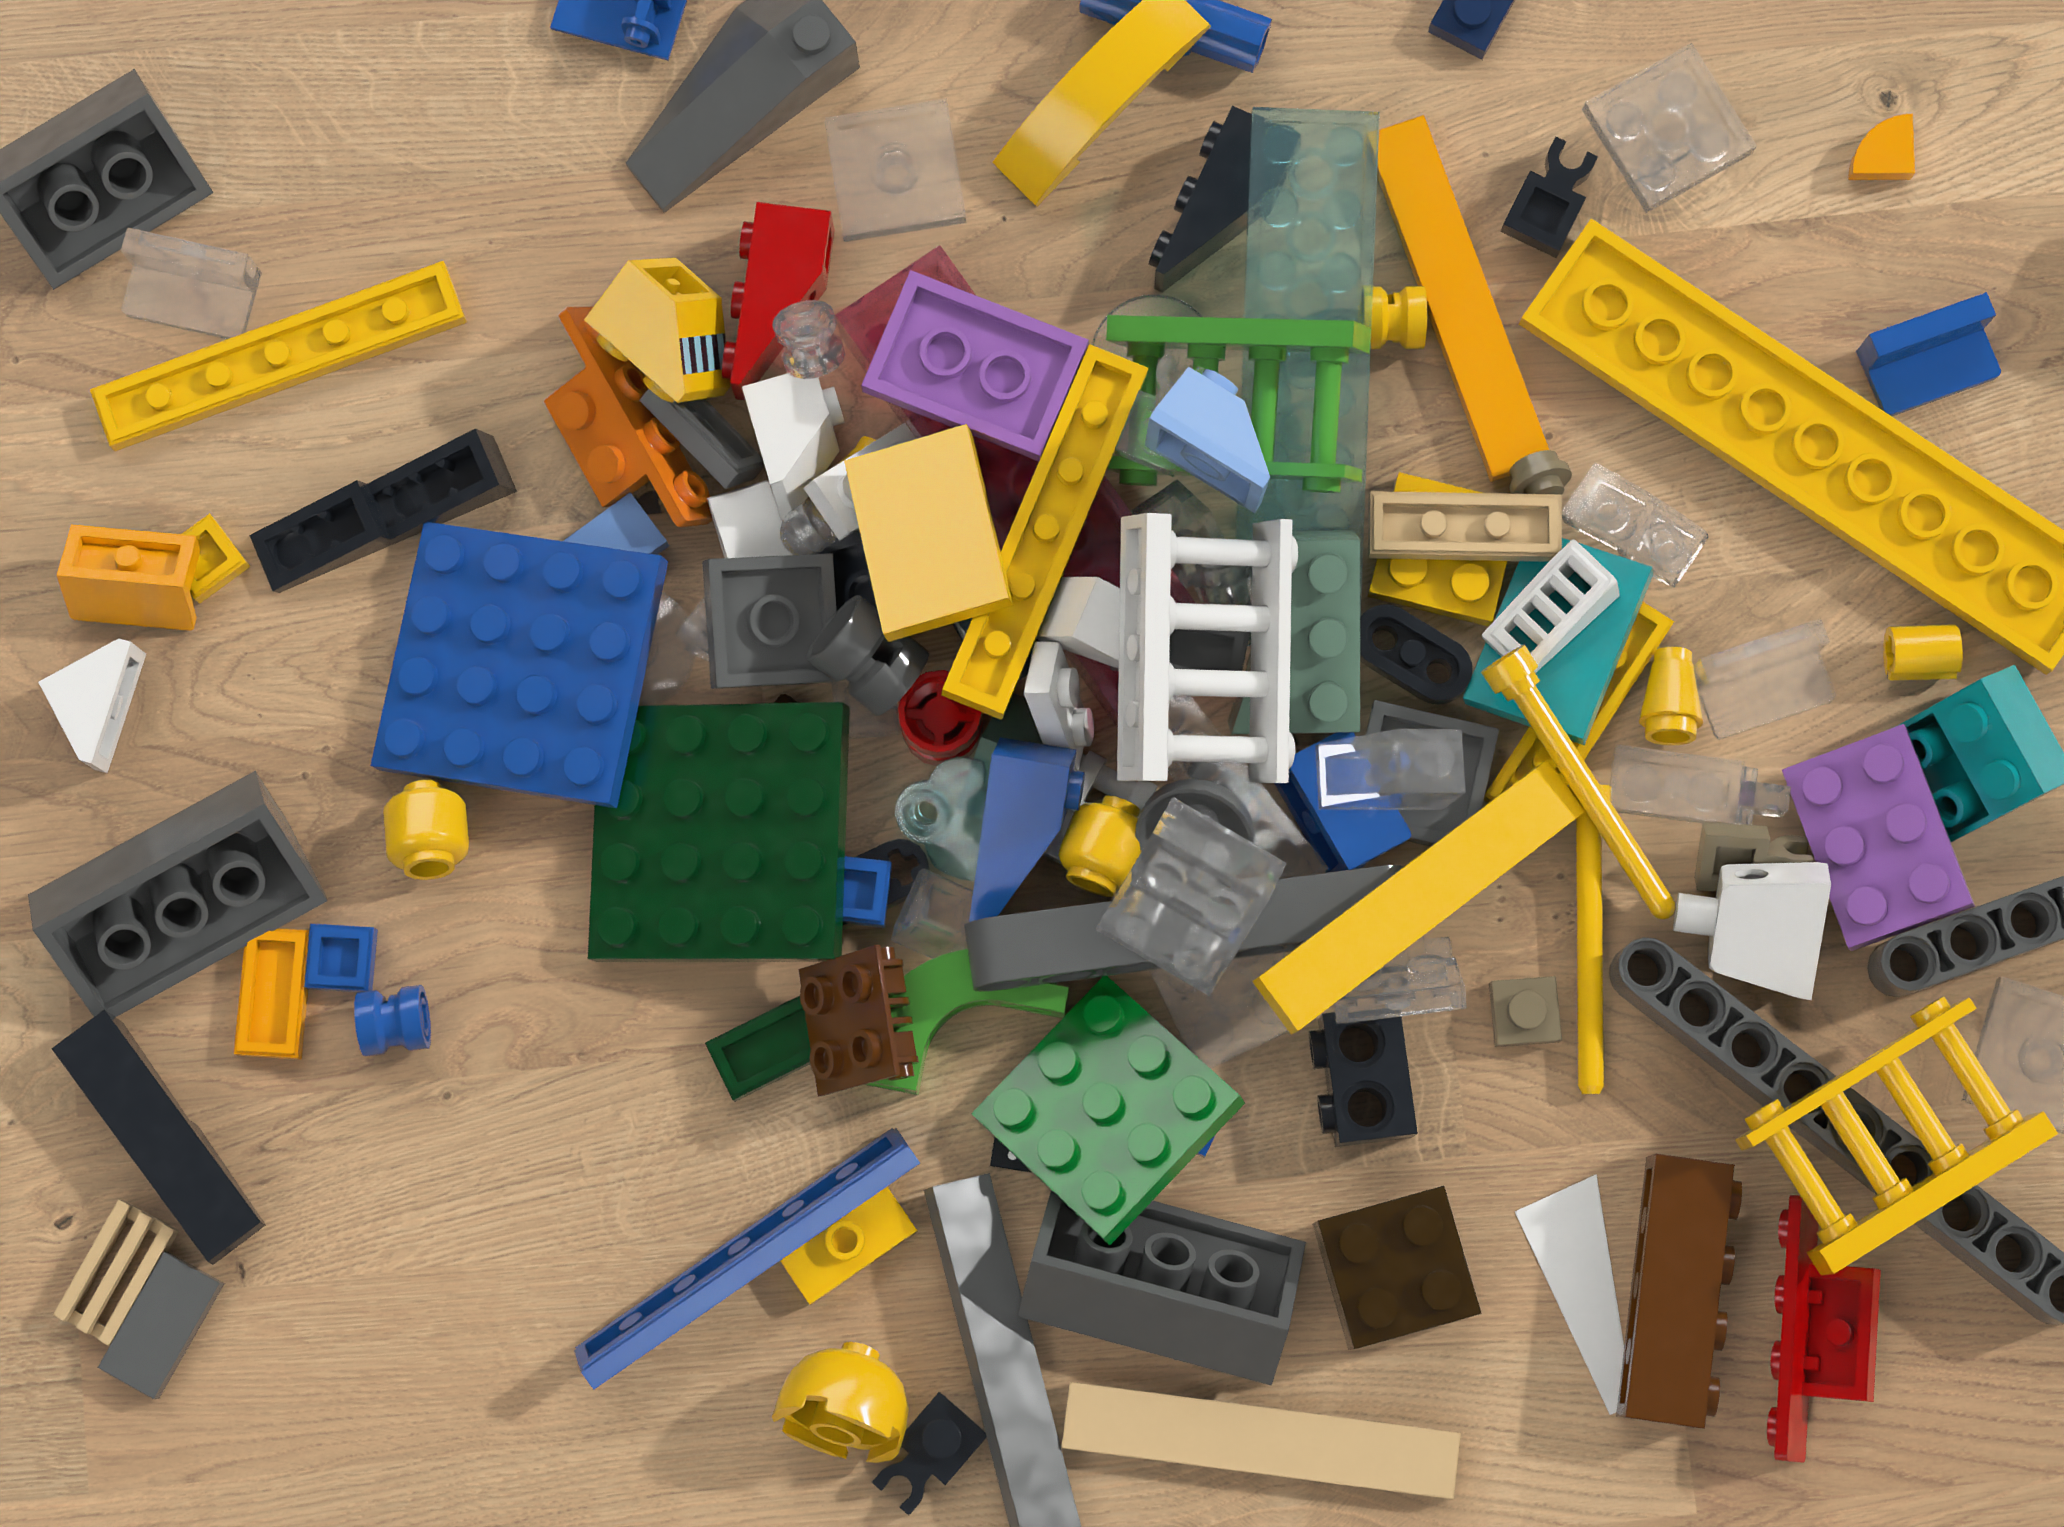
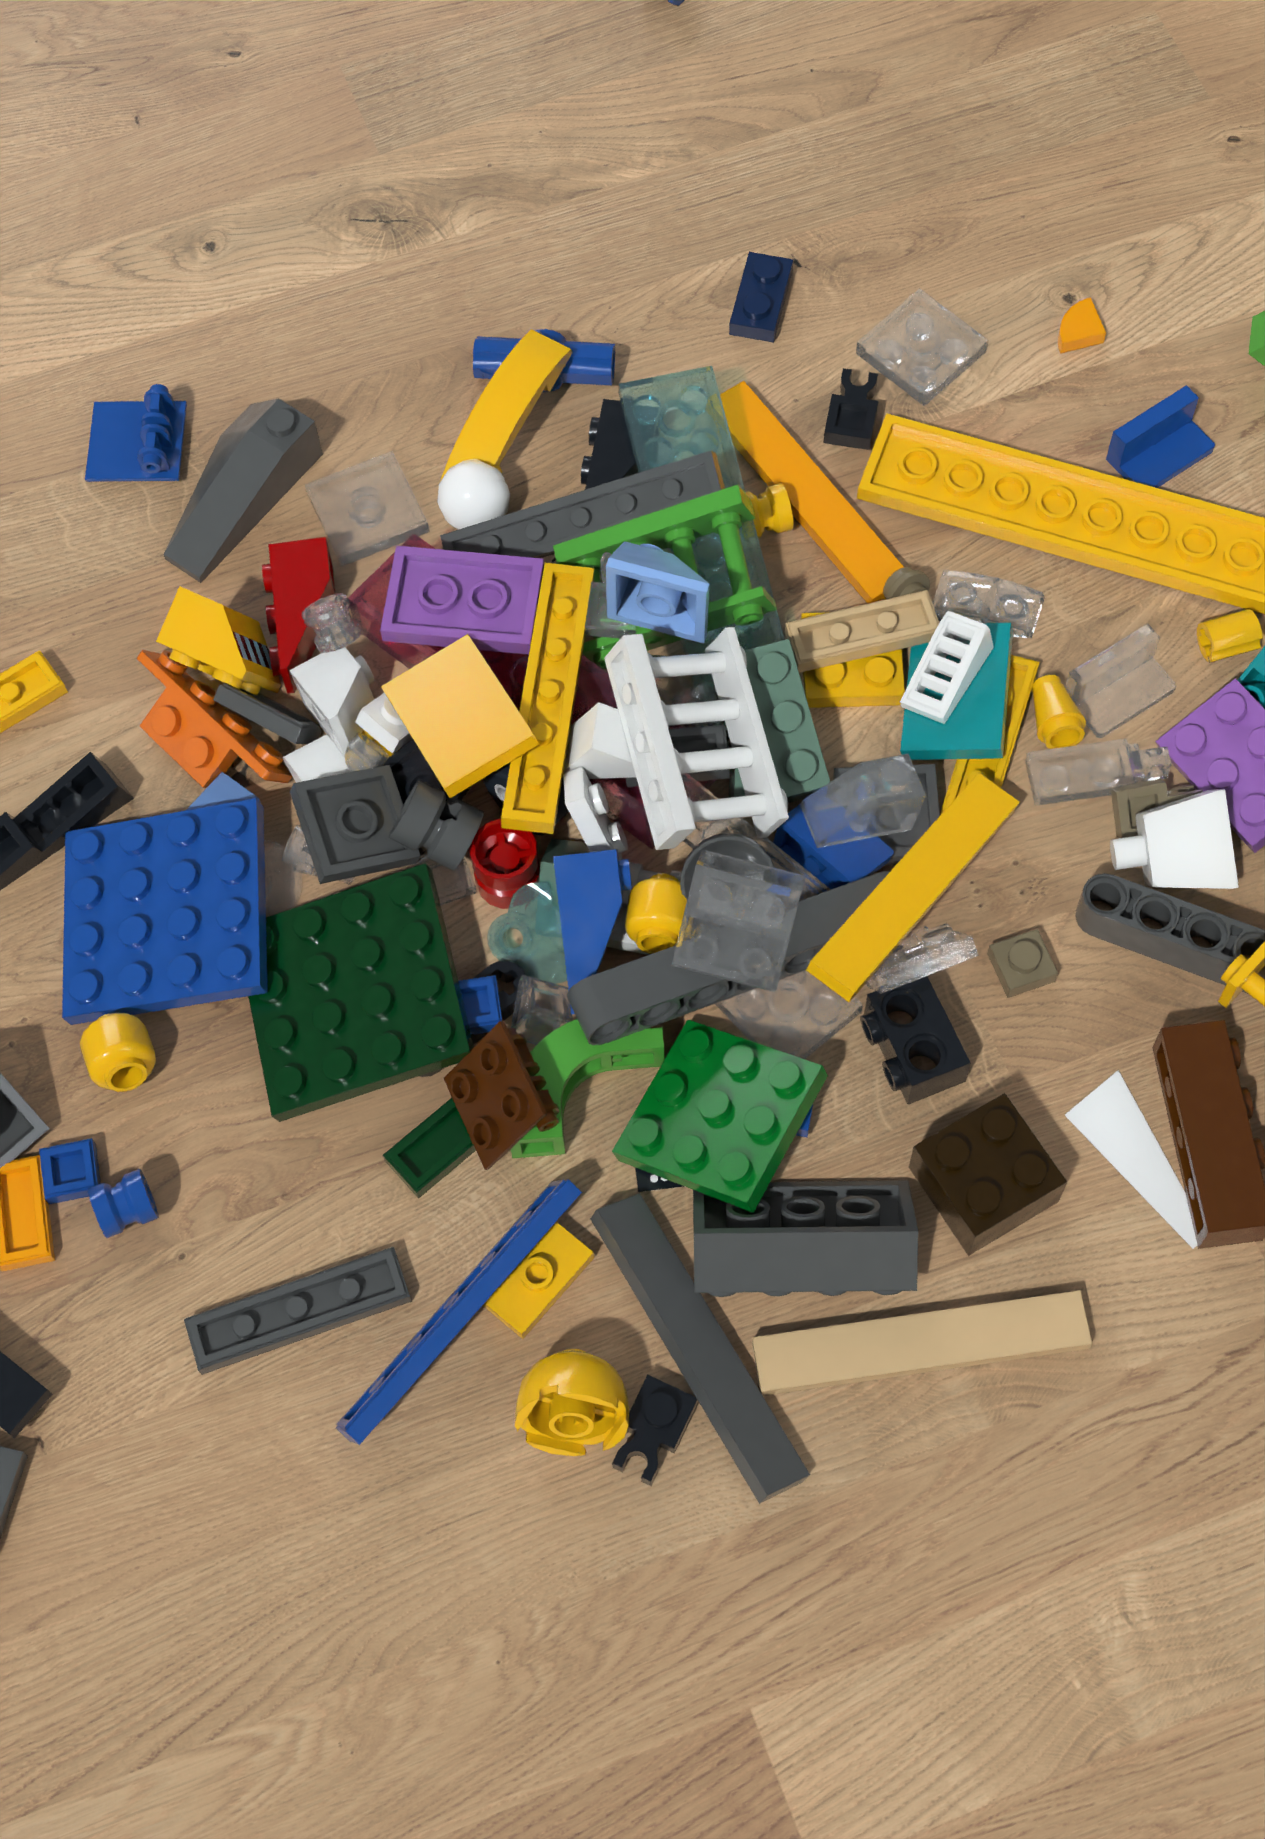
camera: 15 degrees left, 15 degrees down
(563, 1200) = (297, 1310): none -> dark grey tile
(1031, 196) = (472, 494): none -> white hair
(1160, 280) = (539, 527): none -> dark grey plate
(1414, 650) = (853, 730): black plate -> none
(1516, 680) = (937, 718): yellow piece -> none
(1589, 954) = (1054, 897): yellow bar -> none

